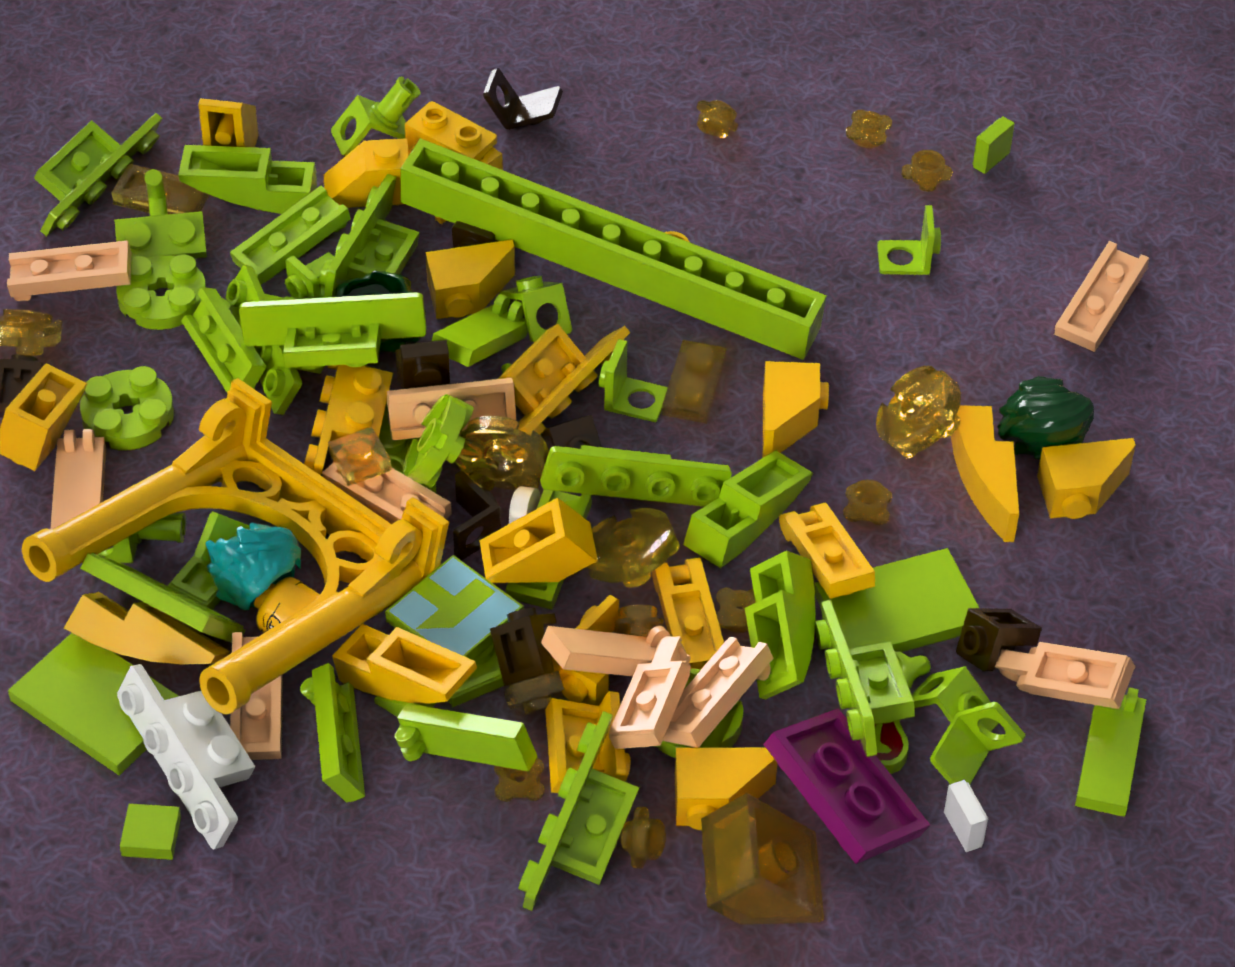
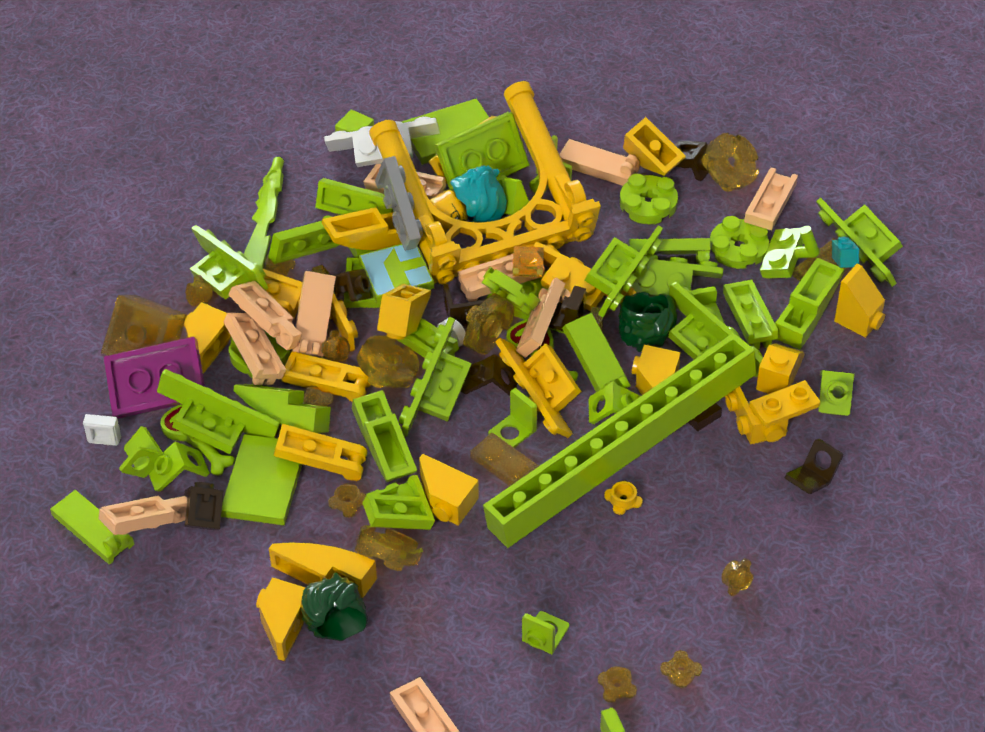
camera: 120 degrees right, 0 degrees up
(156, 148) = (845, 252): none -> teal piece
(349, 616) = (392, 179): none -> light grey wing
(421, 851) = (266, 213): none -> lime sword
(847, 434) = (399, 506): none -> lime wing

